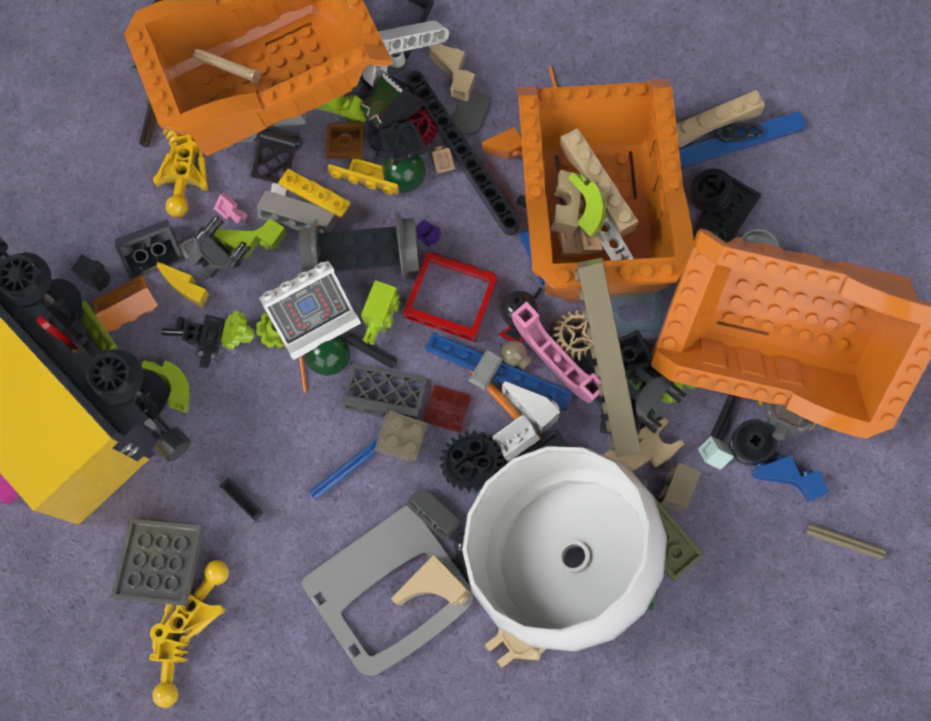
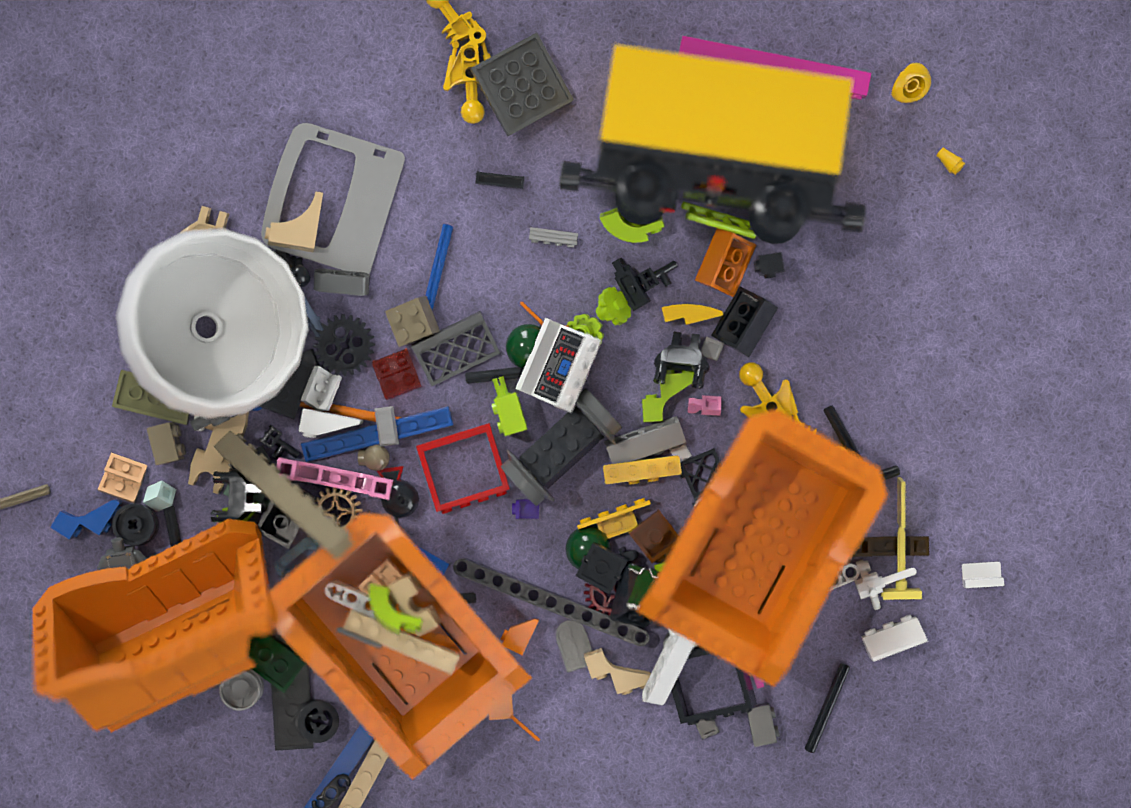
camera: 135 degrees right, 15 degrees up
(229, 66) = (784, 513): tan axle -> none
(235, 420) = (553, 236): none -> light grey piece
(442, 159) = (563, 583): medium nougat bracket -> none
(586, 429) = (282, 445): none -> black arm
(641, 220) = (351, 634): none -> dark grey window
(737, 491) = (122, 478): none -> light nougat slope

